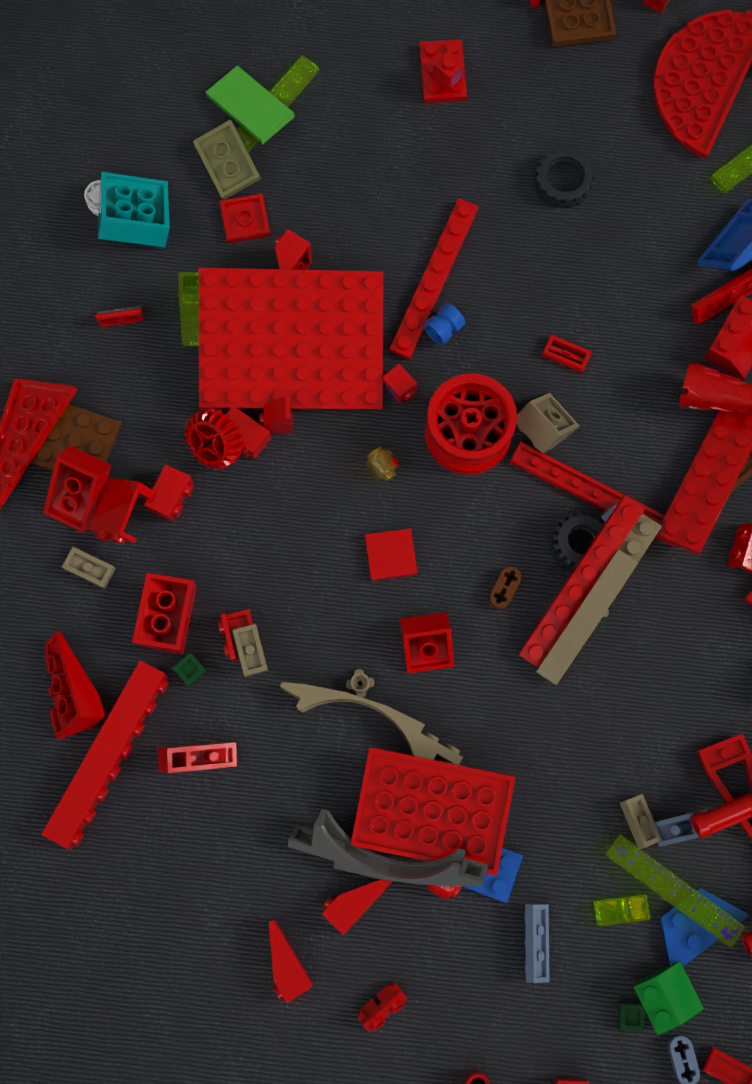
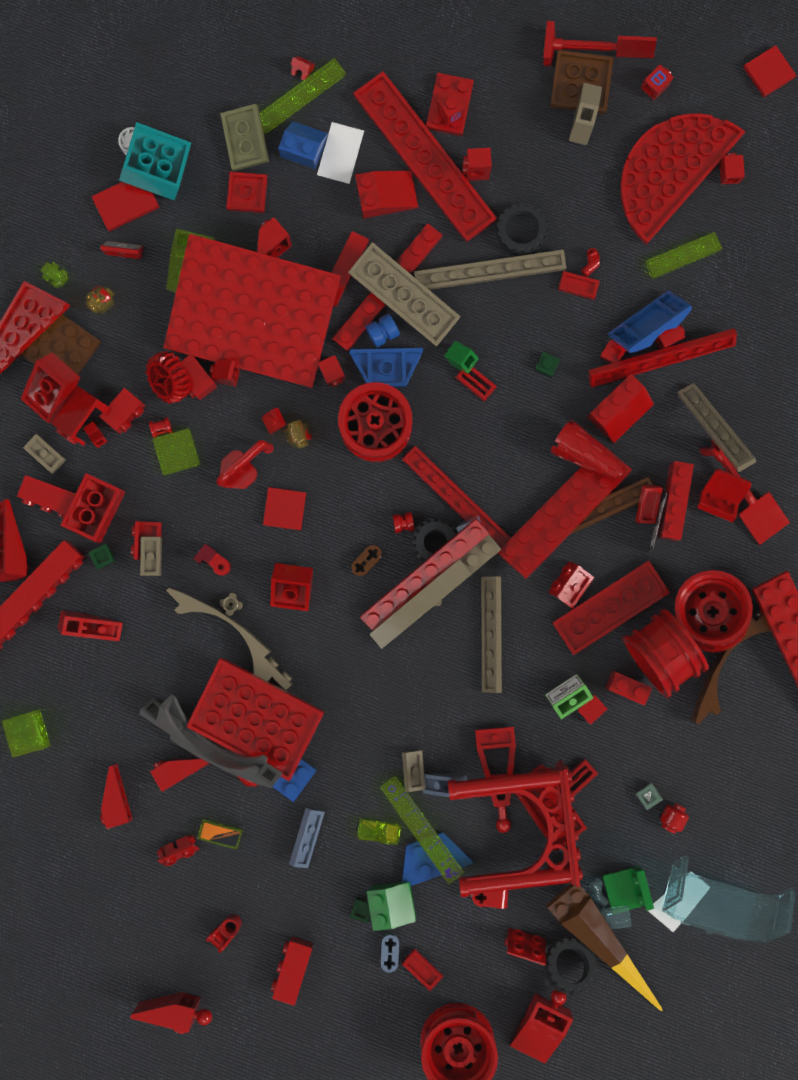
camera: 15 degrees right, 10 degrees up
(44, 360) = (50, 272): none -> clear neon green piece
(104, 616) = (46, 495): none -> red brick
(108, 266) = (123, 204): none -> red tile
(109, 376) = (100, 300): none -> clear yellow head
(143, 529) = (95, 434): none -> red piece
(152, 912) = (26, 733): none -> clear neon green bracket
(218, 500) = (160, 427): none -> red bush
(244, 524) = (176, 452): none -> clear neon green tile
(250, 104) = (277, 92): bright green tile -> none
(272, 71) = (302, 64): none -> red tile
(293, 153) = (302, 144): none -> blue slope
(321, 523) = (238, 470): none -> red piece
(326, 635) = (214, 559): none -> leg
(337, 151) = (340, 152): none -> white sticker
(349, 457) = (273, 420): none -> red plate
(383, 254) = (349, 256): none -> red tile
(400, 178) = (385, 192): none -> red slope
(427, 970) = (219, 834): none -> slope
(433, 131) = (424, 156): none -> red plate
(457, 277) = (404, 294): none -> dark tan plate
(459, 358) = (387, 365): none -> blue wing
(495, 120) = (477, 164): none -> red brick
(533, 532) = (403, 522): none -> red wheel
(543, 230) = (492, 270): none -> dark tan plate
(543, 329) = (461, 357): none -> green brick
(545, 422) = (440, 435): dark tan slope -> none
(596, 41) = (585, 113): none -> dark tan slope
(640, 313) = (547, 364): none -> dark green plate
(646, 221) = (578, 285): none -> red tile
(654, 192) = (593, 261): none -> red arm
(679, 632) = (491, 634): none -> dark tan plate
(709, 280) = (613, 352): none -> red plate

